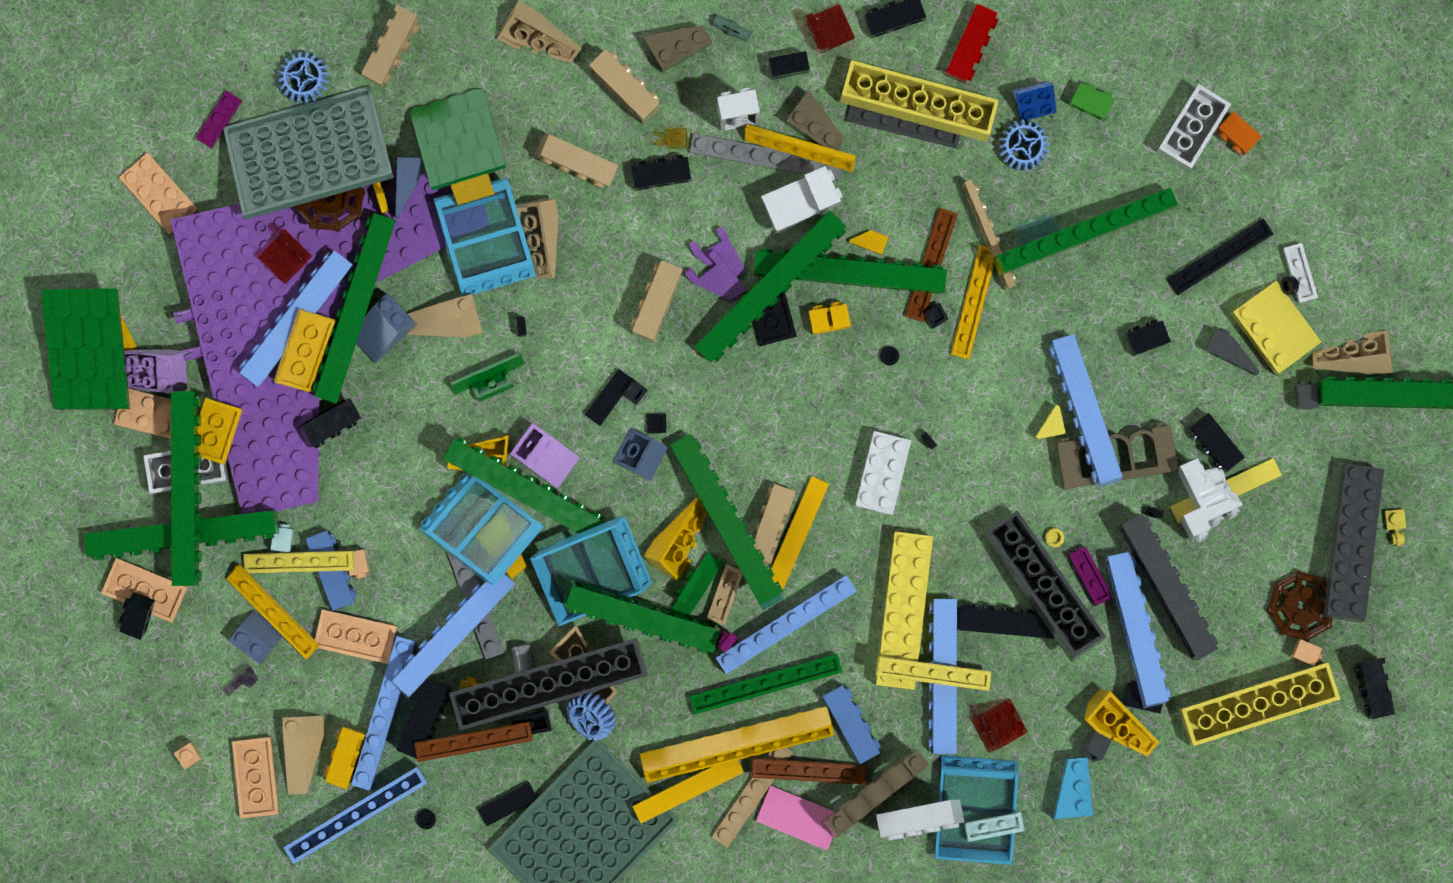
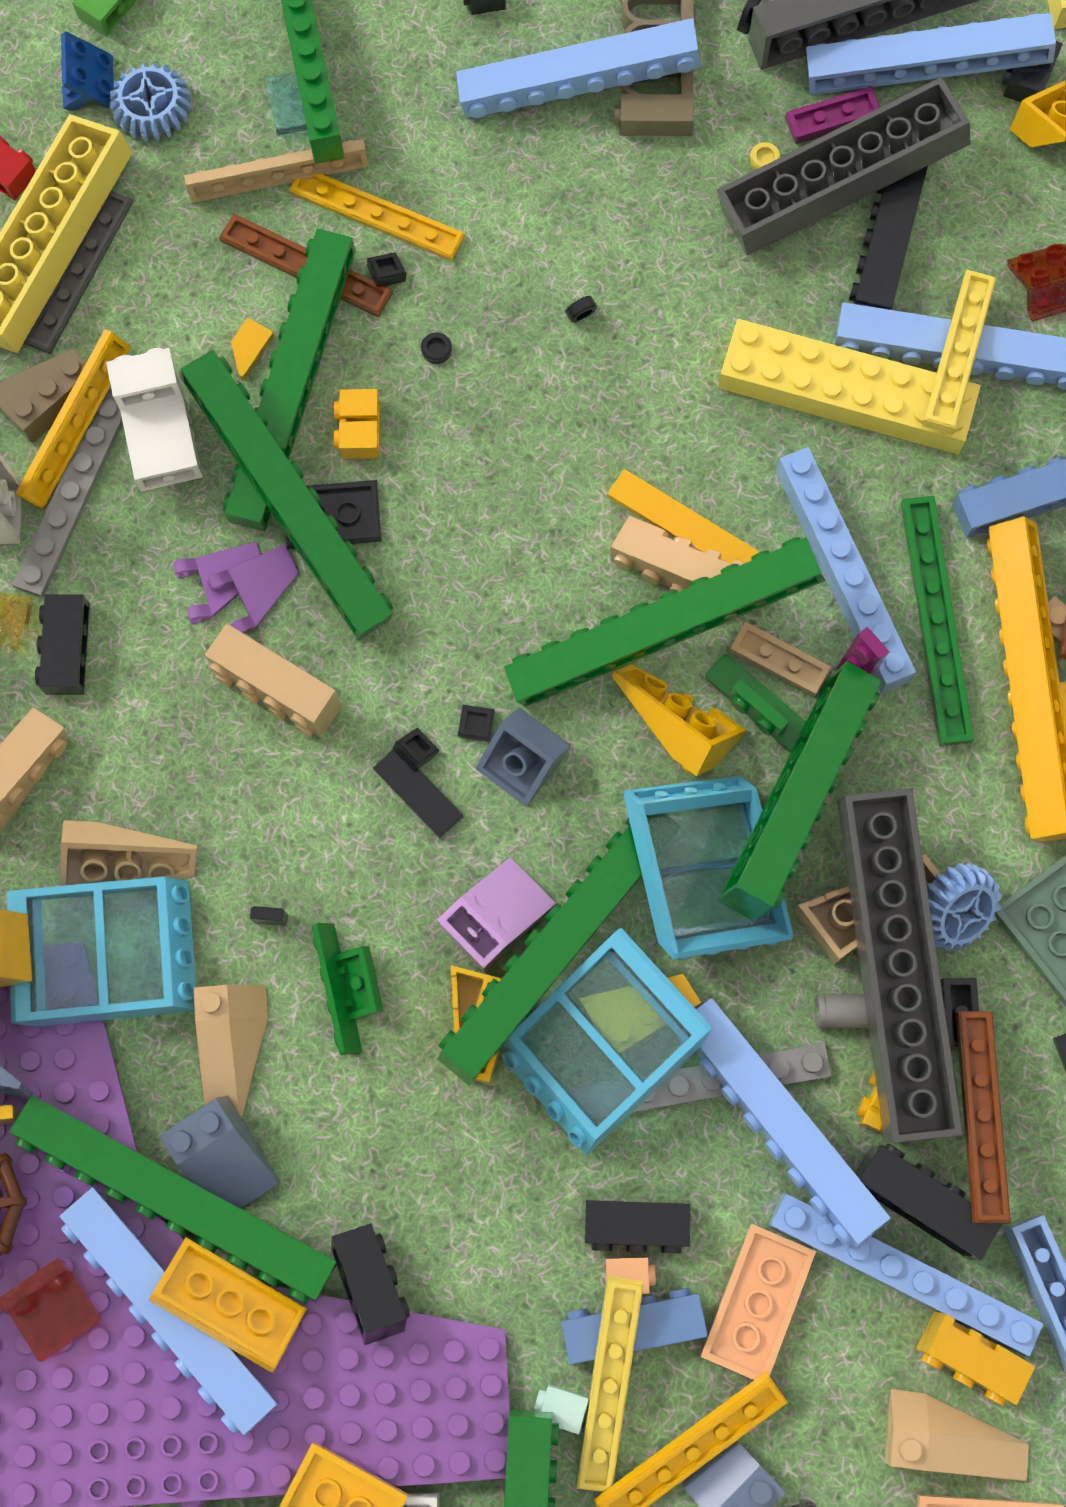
camera: 70 degrees left, 10 degrees down
(385, 563) = (637, 1225): none -> black brick
(883, 473) = (622, 382): white brick -> none
(1052, 426) = (589, 128): light yellow slope -> none

